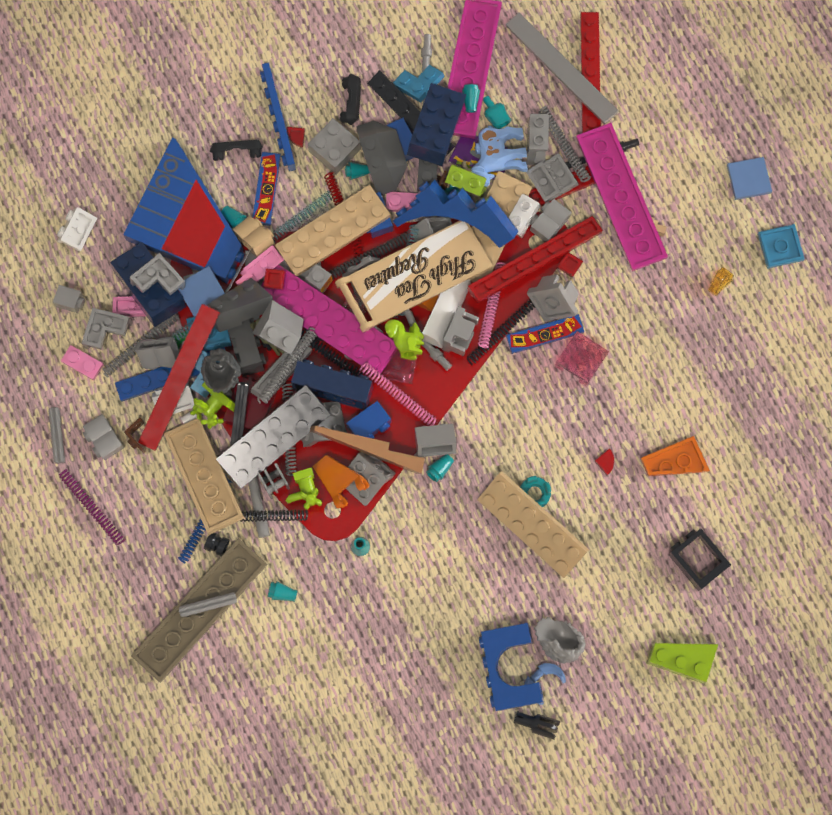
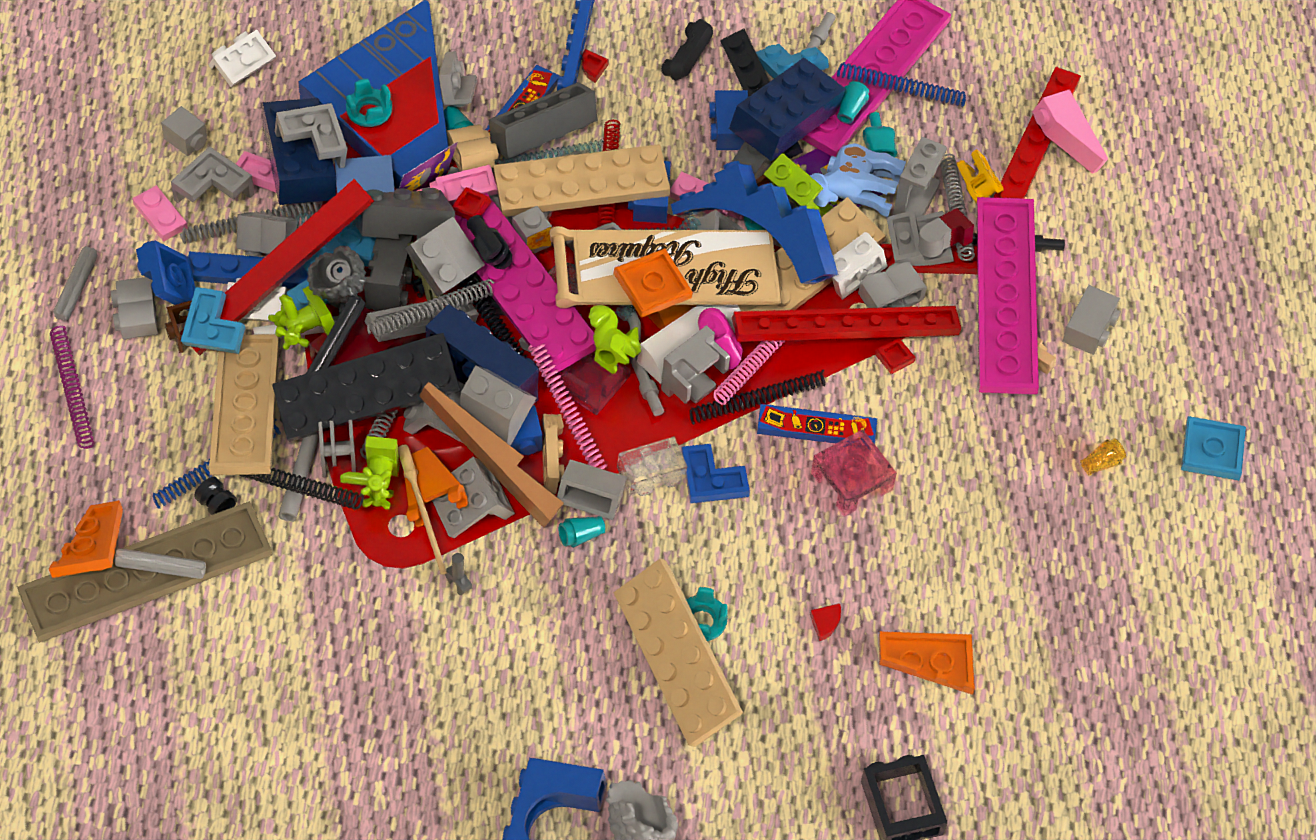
camera: 20 degrees right, 20 degrees down
(114, 409) = (168, 270): none -> blue plate
(153, 435) = (206, 328): none -> dark azure plate
(161, 608) = (94, 541): none -> orange wing
(172, 227) = (366, 95): none -> teal piece
(219, 148) = (481, 38): black piece -> none
(221, 190) = (455, 87): none -> light grey bracket
(279, 591) = (272, 595): teal cone -> none
(288, 195) = (543, 120): none -> dark grey brick
(300, 304) = (489, 243): none -> black arm
(324, 477) = (410, 473): none -> tan piece
(334, 146) = (637, 92): light grey brick -> none
(356, 170) = (653, 132): teal cone -> none
(358, 416) = (496, 403): none -> light grey slope
(360, 551) = (415, 580): teal cone -> none
(383, 155) = (695, 124): dark grey wedge -> none
(383, 530) = (456, 574): none -> dark grey bar
(399, 422) = (551, 451): none -> tan hinge
(413, 291) = (653, 282): none -> orange tile
(462, 299) = (724, 334): none -> dark pink arm
(463, 407) = (652, 467): none -> clear brick
(494, 71) = (902, 83): none -> blue piece
(496, 401) = (712, 484): none -> blue plate
(553, 299) = (848, 377): light grey panel -> none
(562, 68) = (997, 119): light grey tile -> none
(568, 172) = (945, 232): none -> leg
(575, 118) = (985, 182): none -> yellow piece
(608, 57) = (1068, 128): none -> bright pink slope
(677, 189) = (1091, 320): none -> light grey brick
(749, 178) = (1205, 349): medium blue tile -> none

